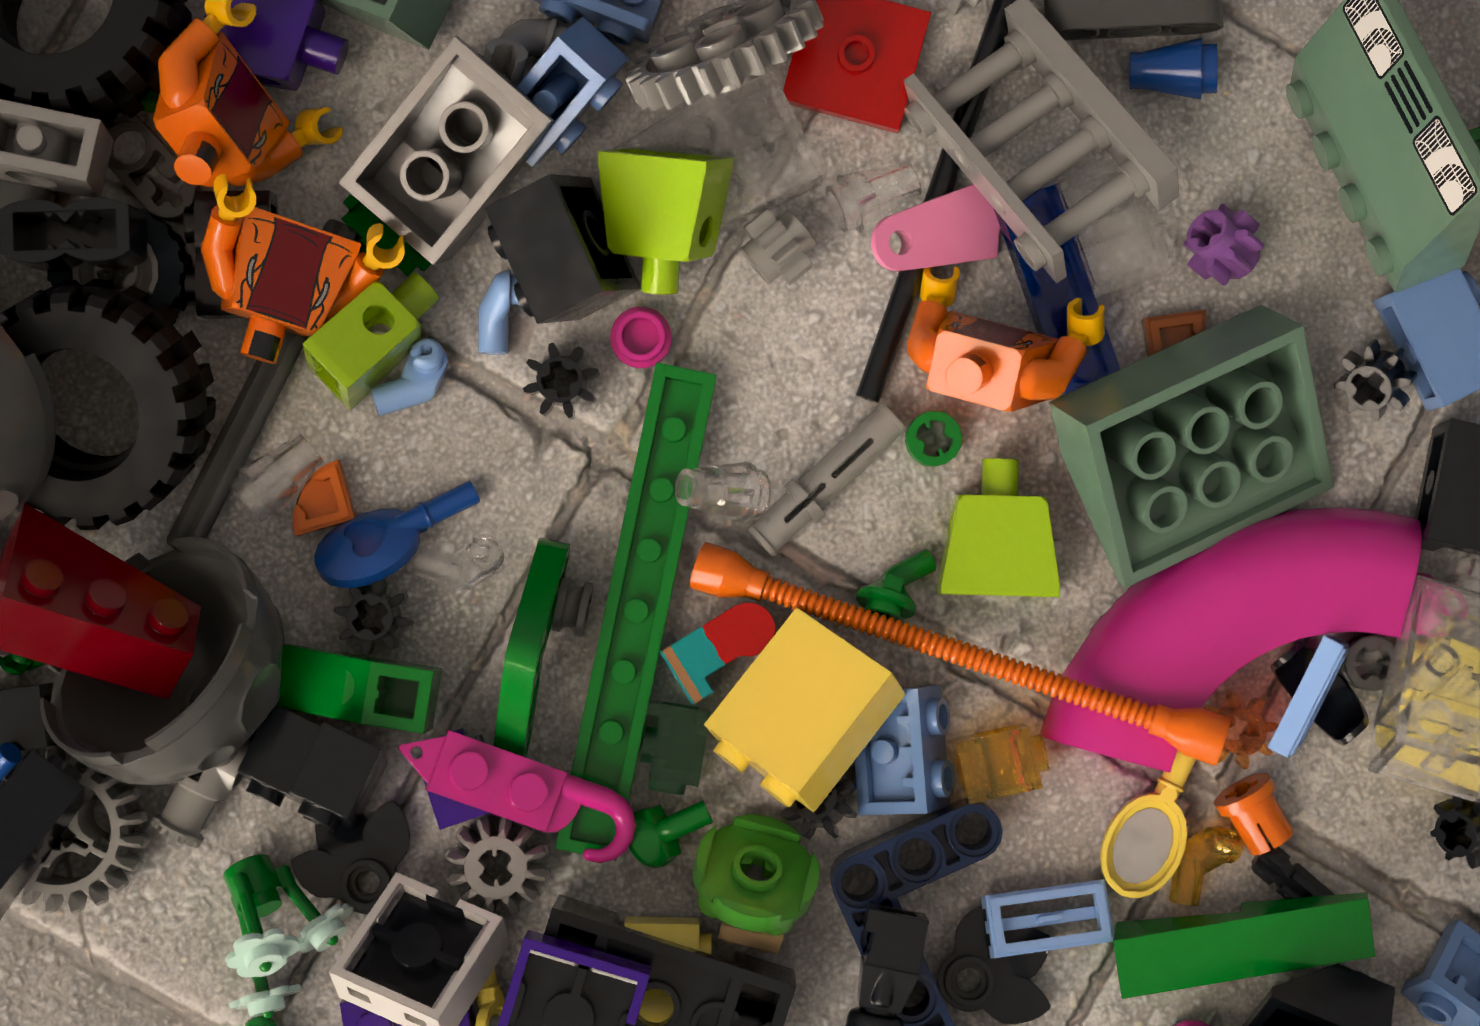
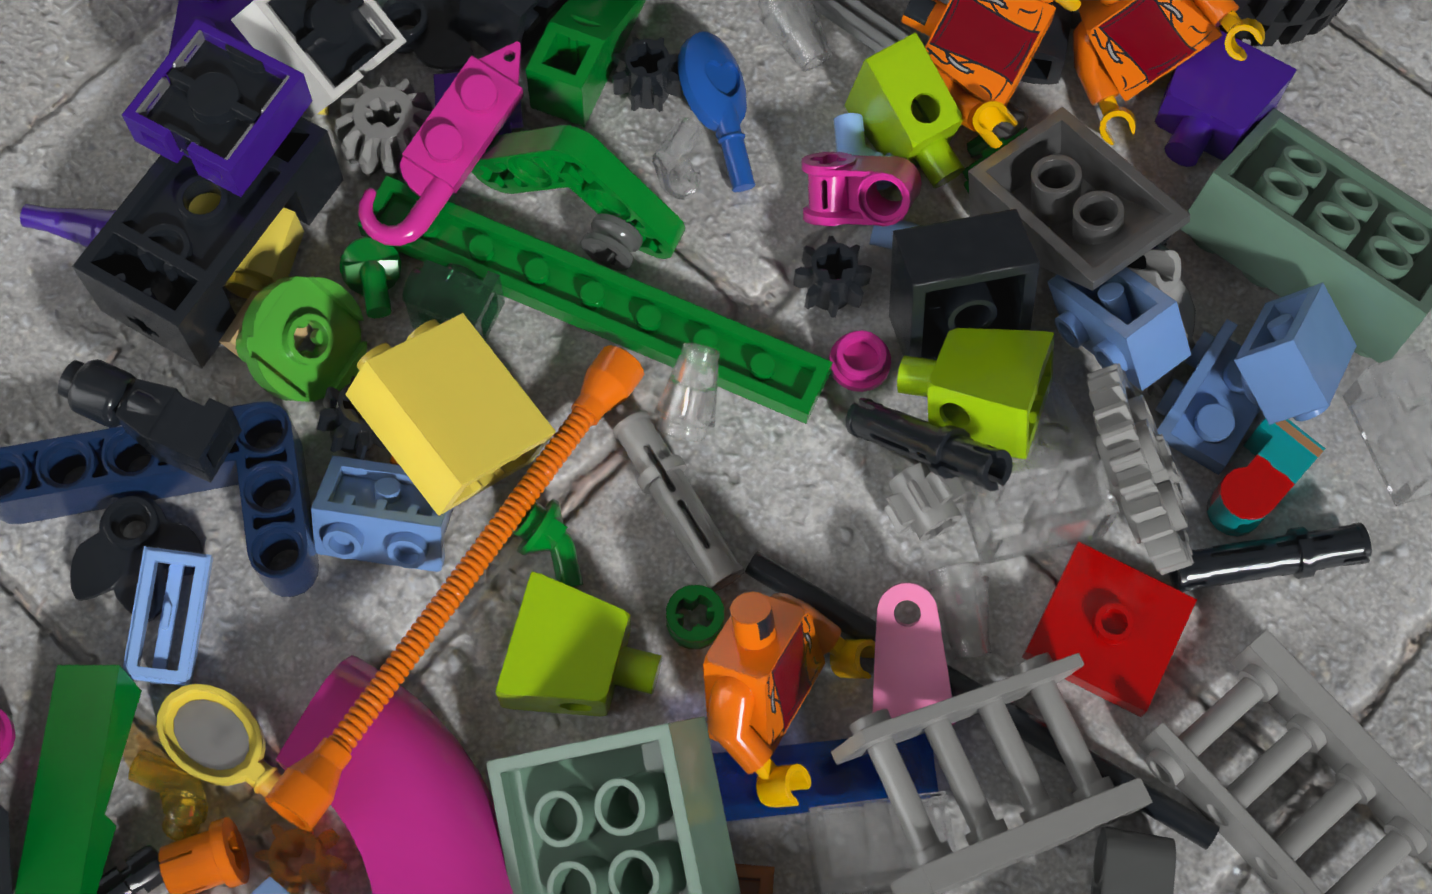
camera: 105 degrees right, 20 degrees down
(323, 501) = (765, 64): orange tile -> none
(467, 368) = (846, 192): none -> dark pink piece
(735, 633) = (539, 356): leg -> none
(743, 234) = (945, 449): none -> black pin
(999, 762) = (342, 601): clear yellow brick -> none

